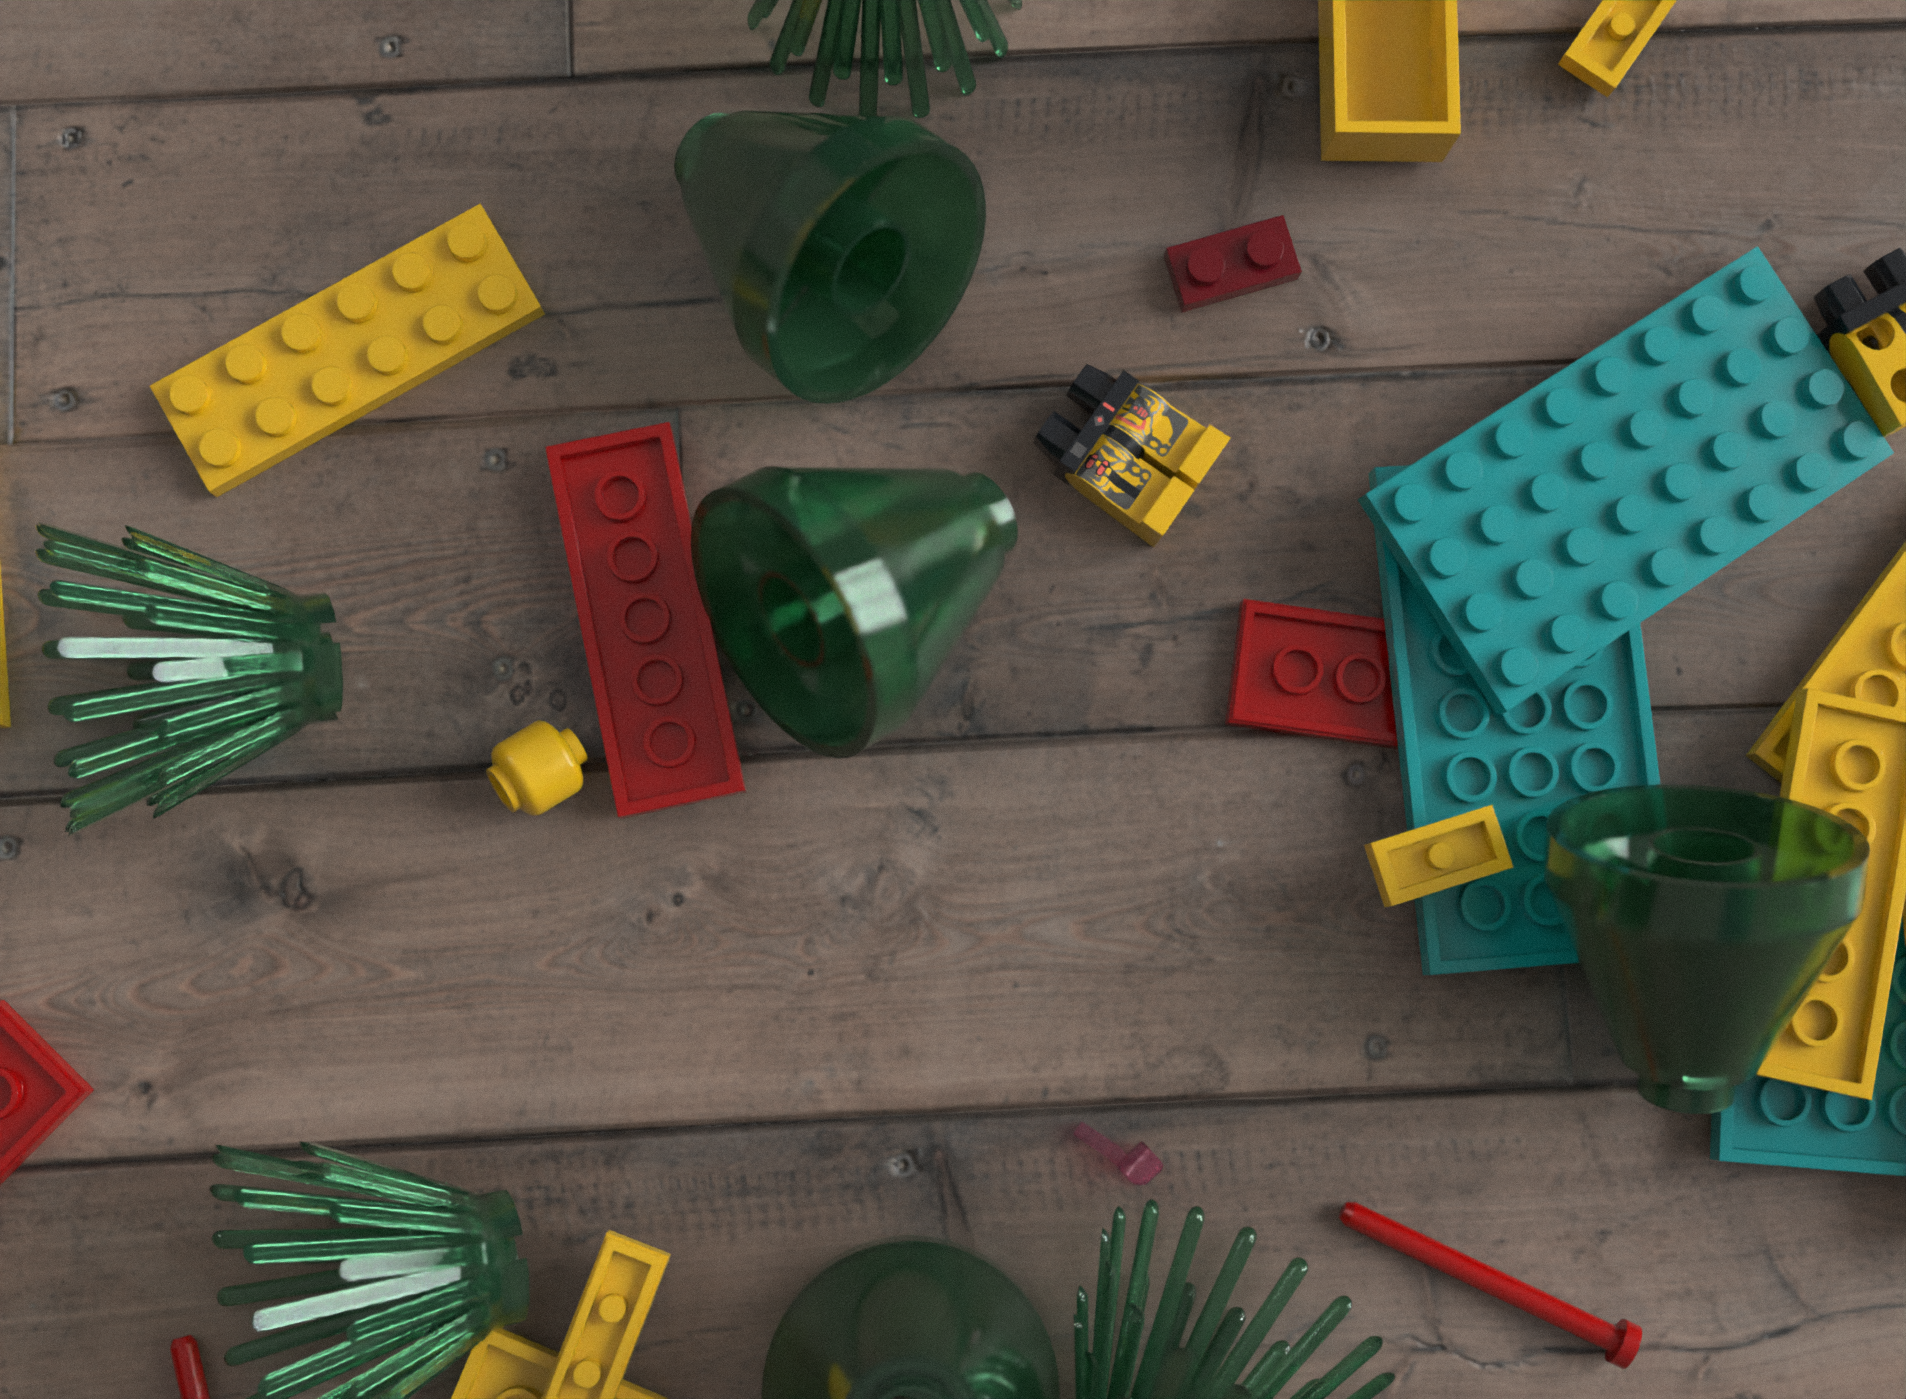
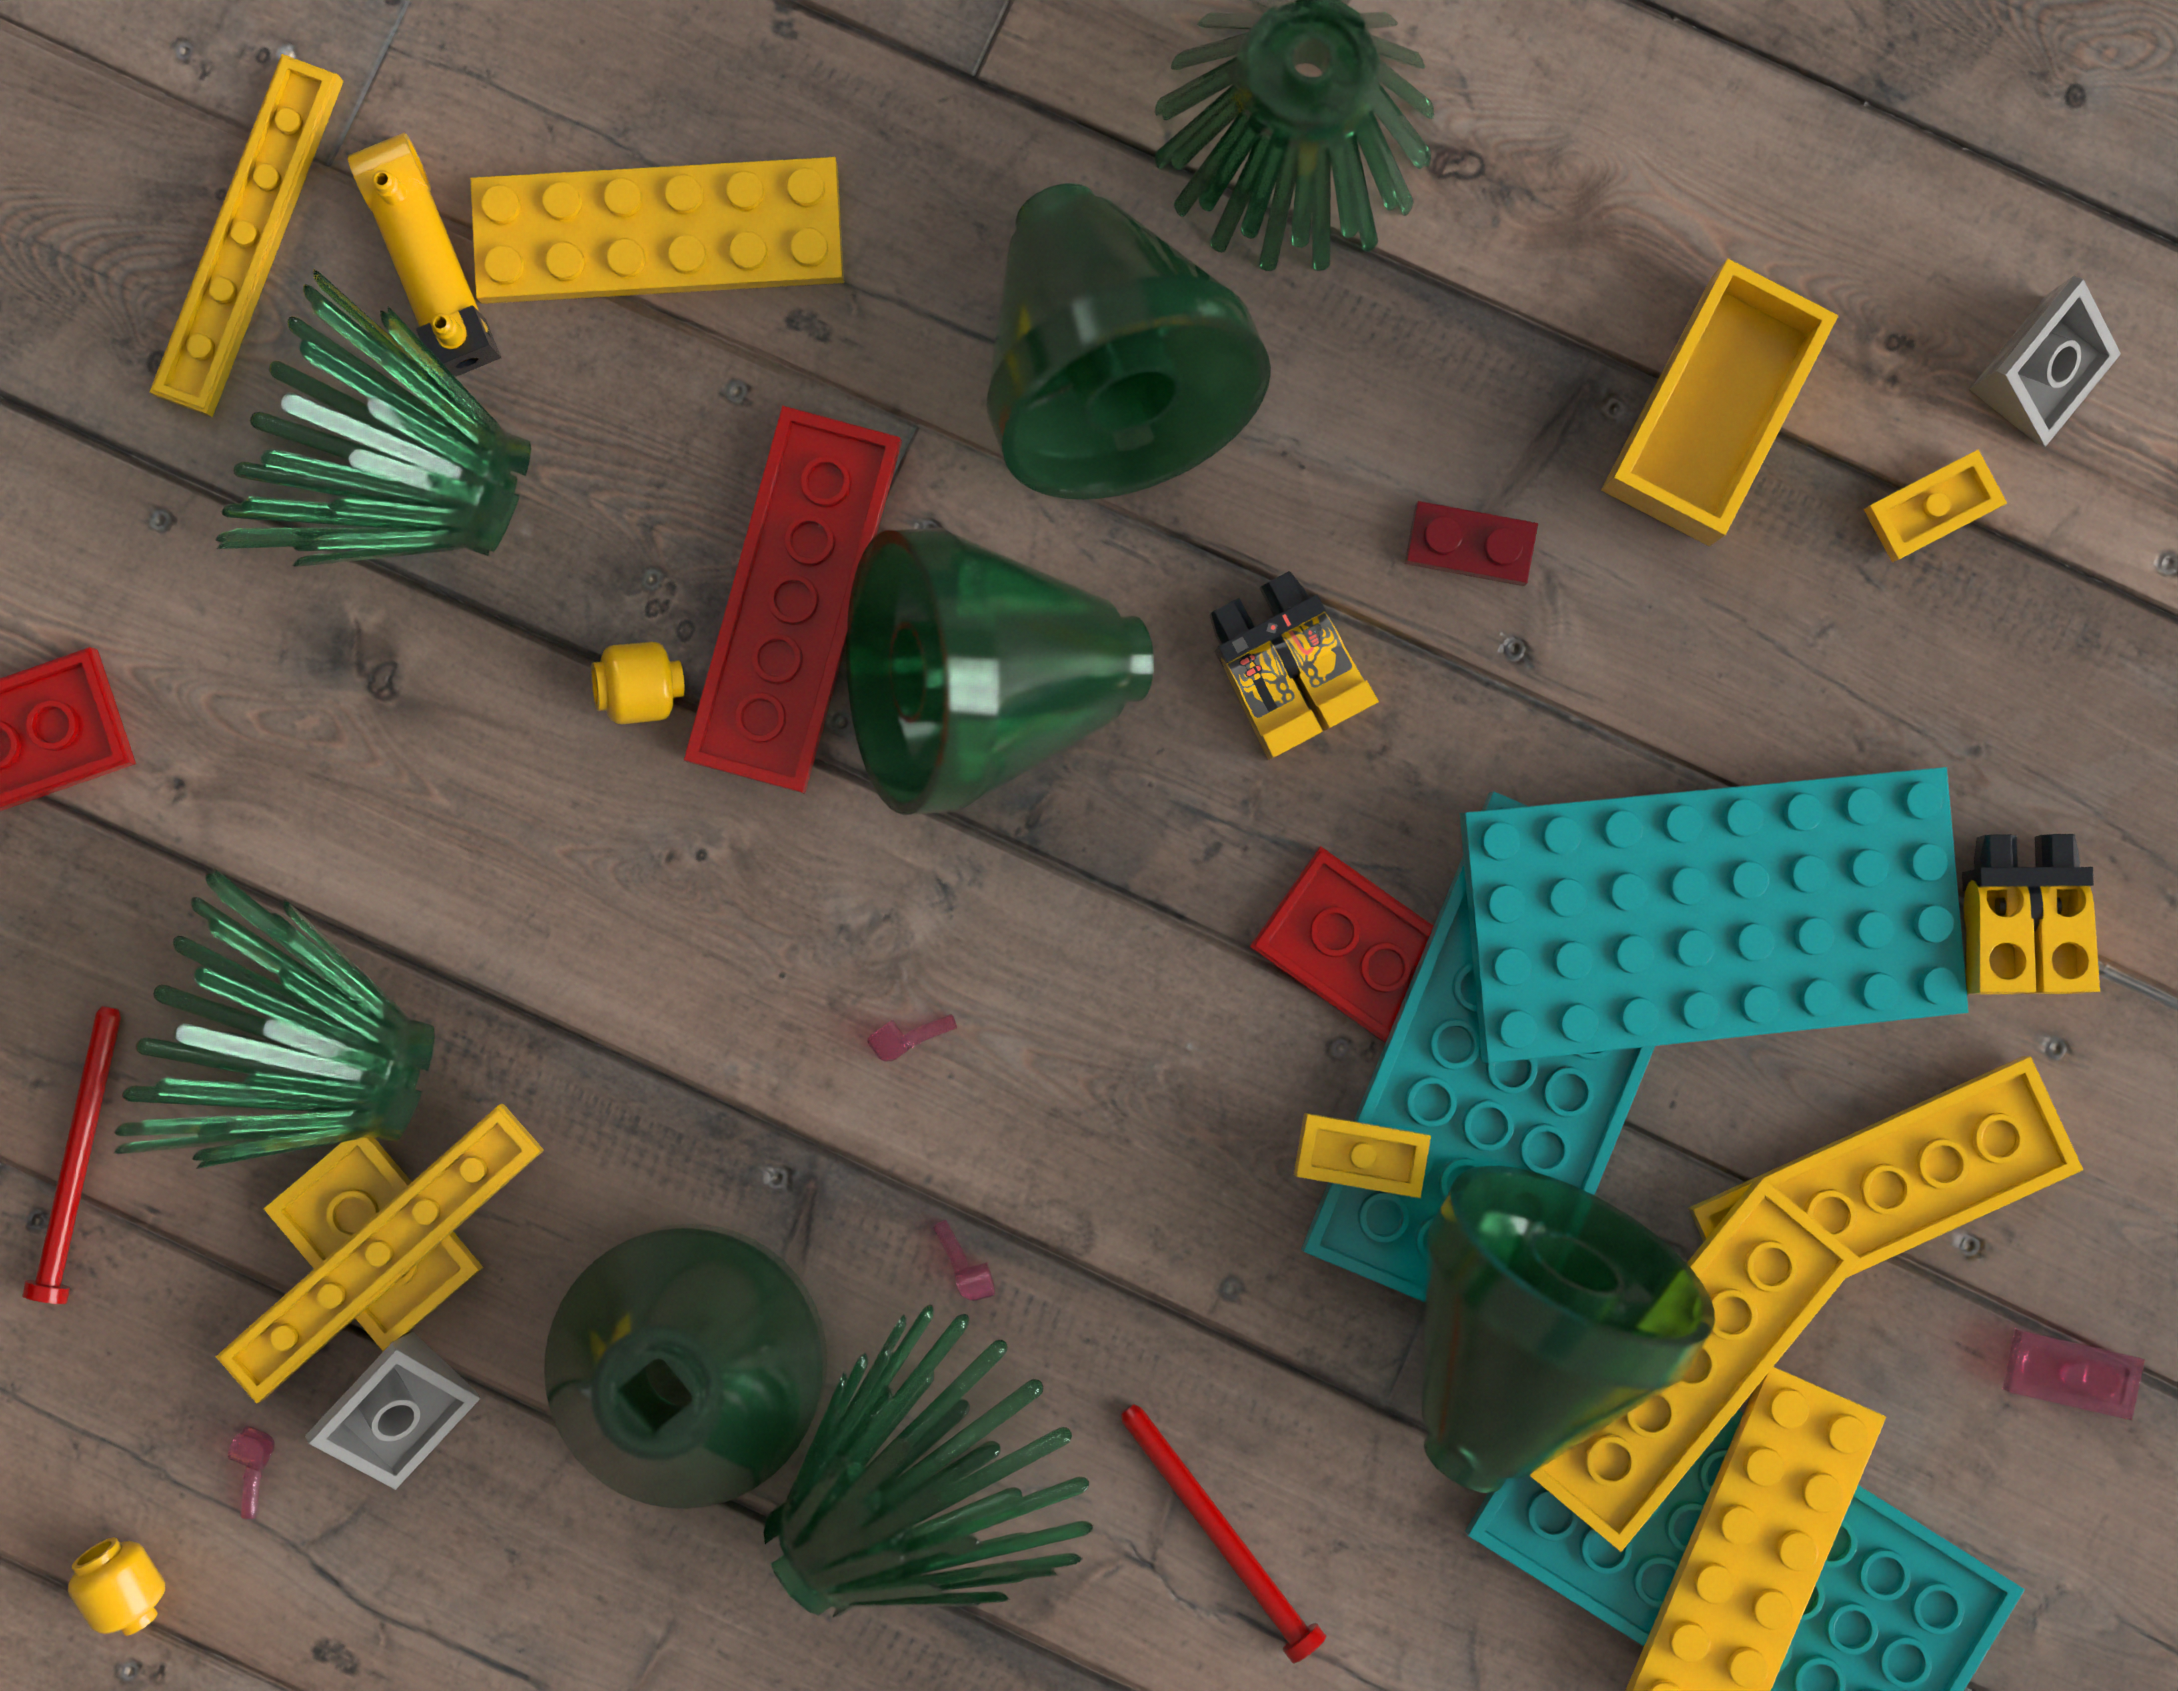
camera: 35 degrees right, 5 degrees up
(137, 473) = (422, 254): none -> yellow piece
(946, 982) = (891, 1043): none -> clear pink hand

